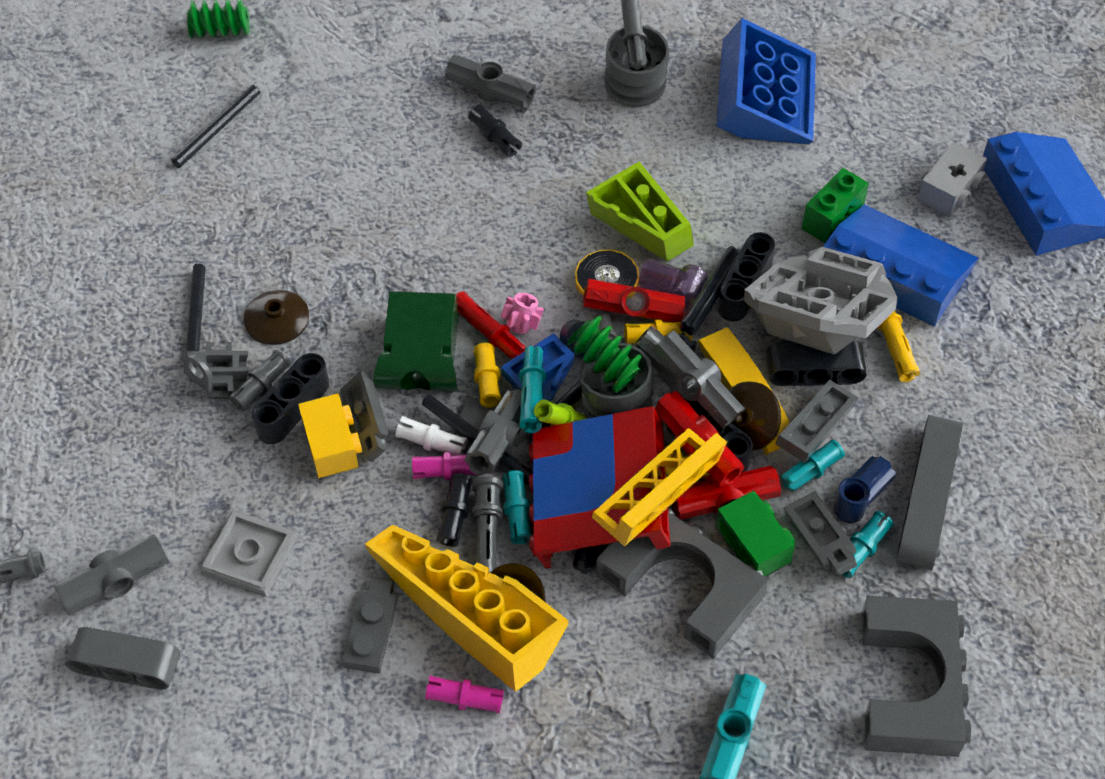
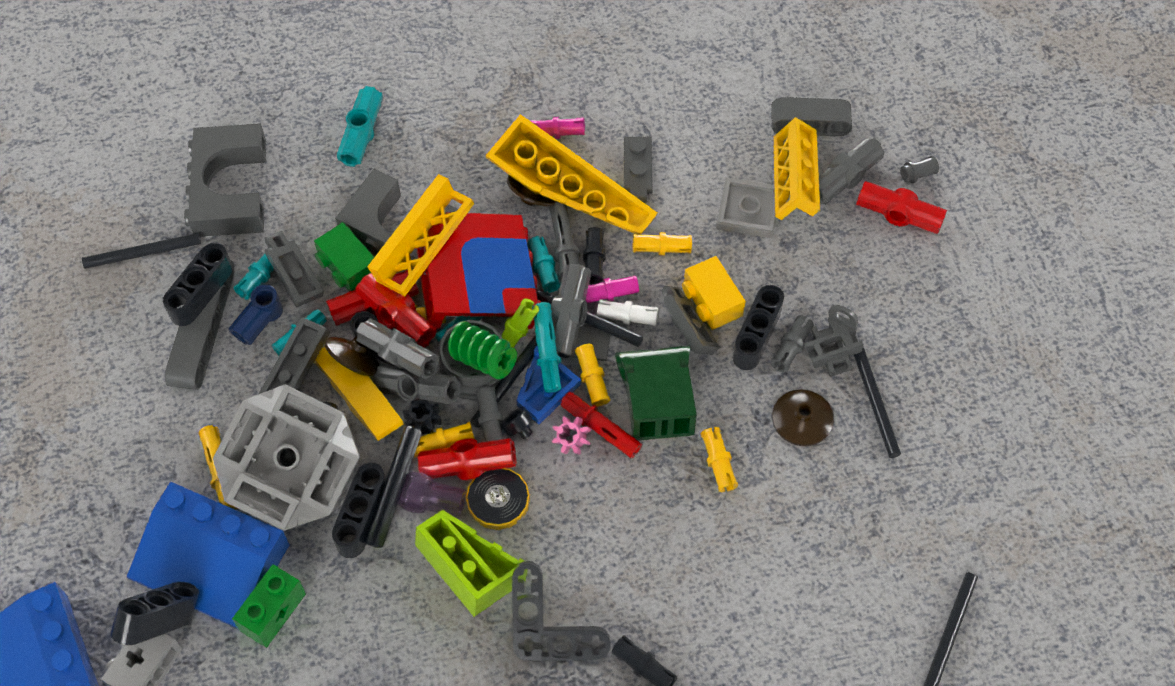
camera: 170 degrees right, 5 degrees up
(67, 516) = (901, 207): none -> red piece
(170, 564) = (800, 167): none -> yellow fence
(369, 513) = (662, 243): none -> yellow pin
(376, 280) = (719, 459): none -> yellow pin
(589, 158) = (535, 626): none -> black beam
(926, 195) = (154, 613): none -> black beam
(929, 514) = (193, 296): none -> black beam
(1022, 600) = (141, 250): none -> black bar

